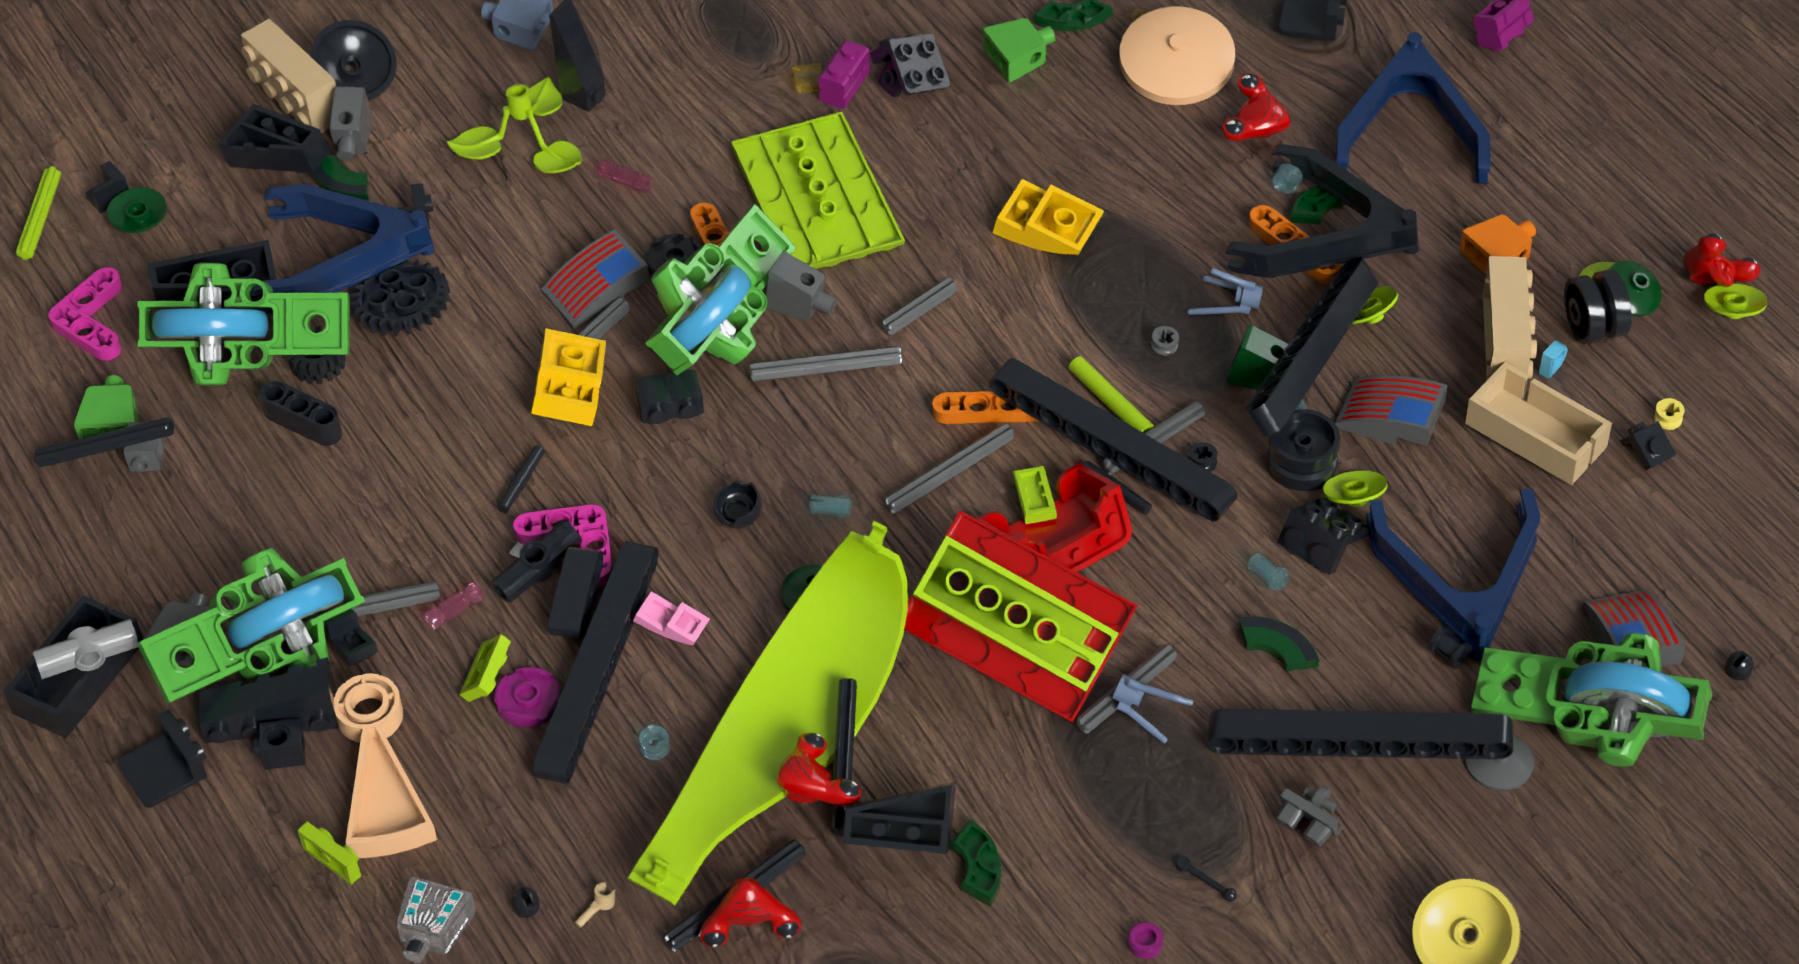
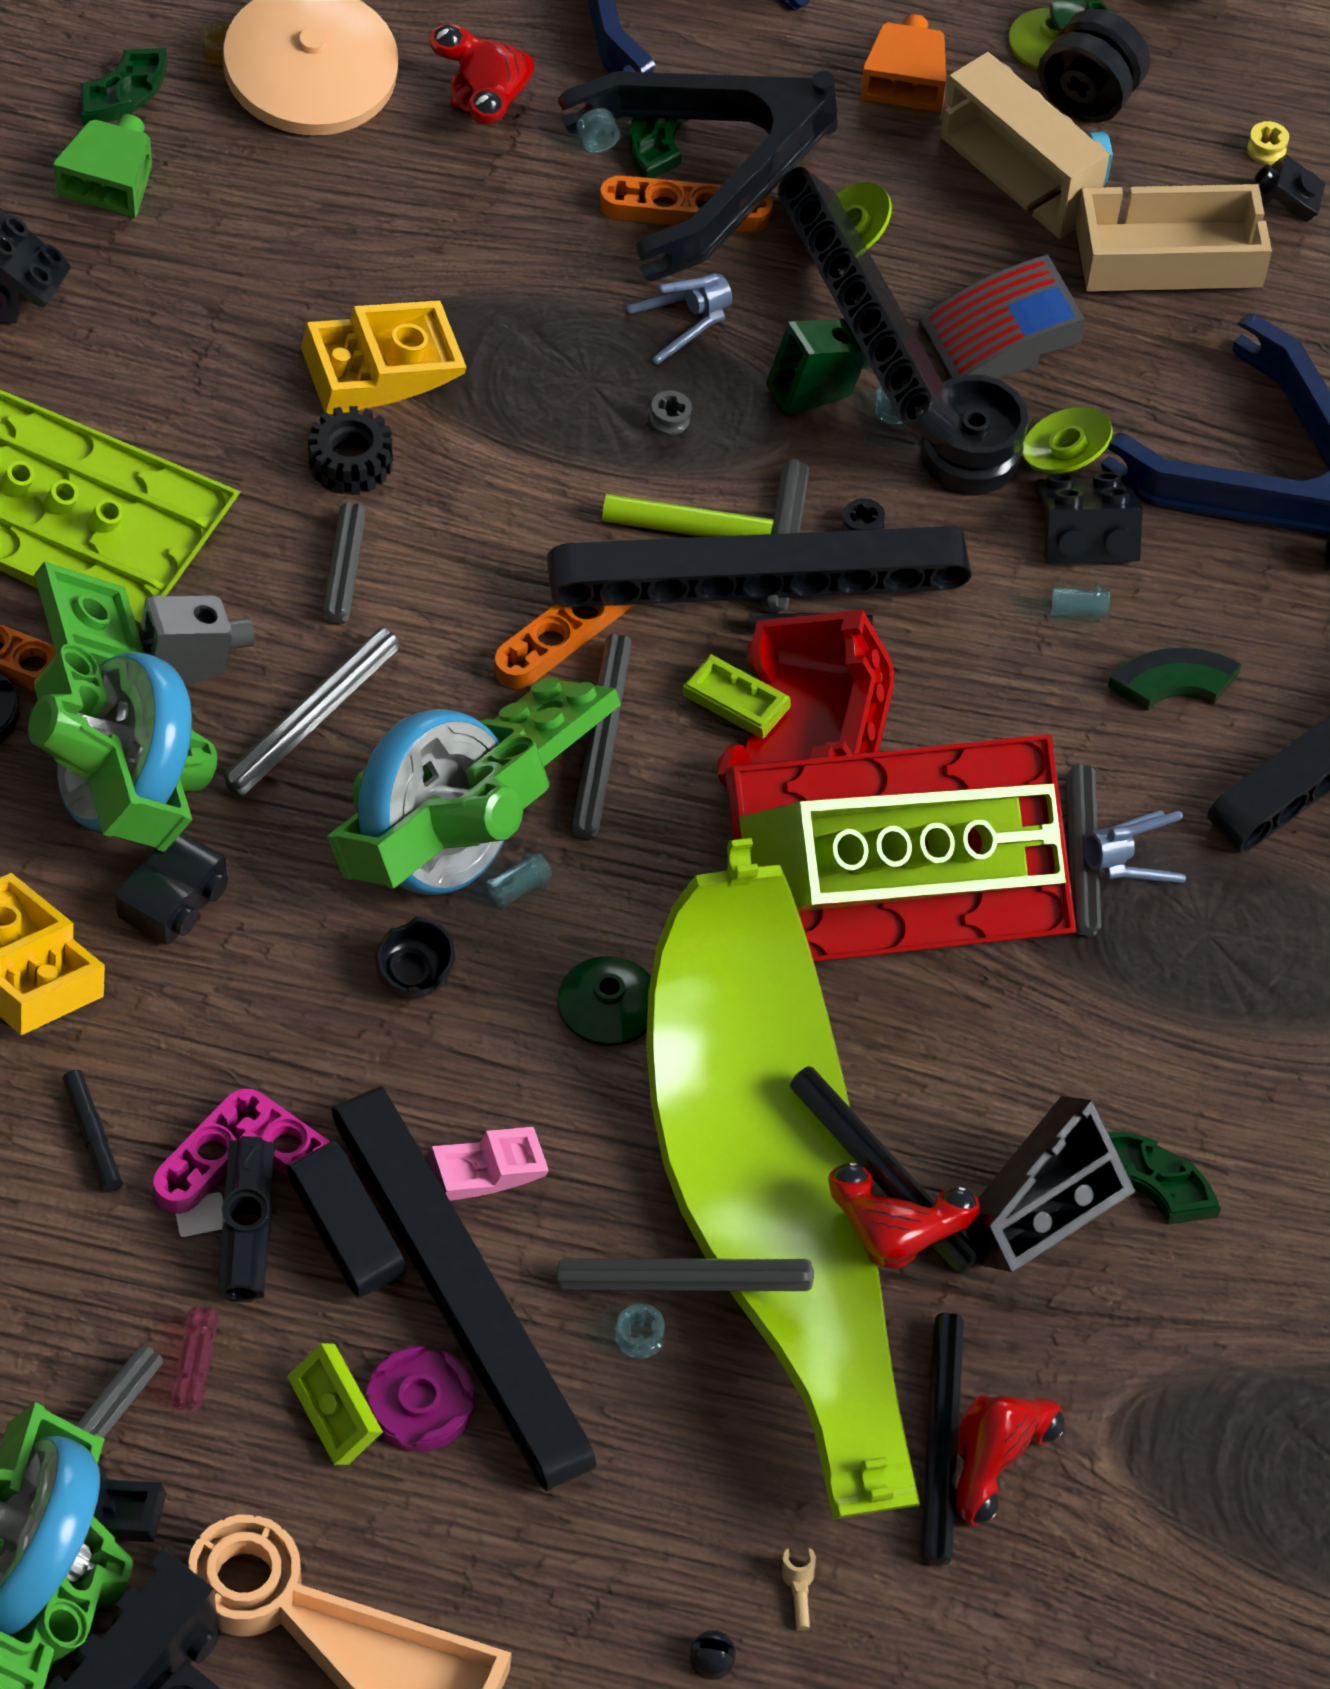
camera: 50 degrees left, 5 degrees up
(690, 727) = (685, 1274): none -> dark grey axle
(824, 435) = (456, 787): none -> piece
(980, 267) = (350, 429): none -> black tyre

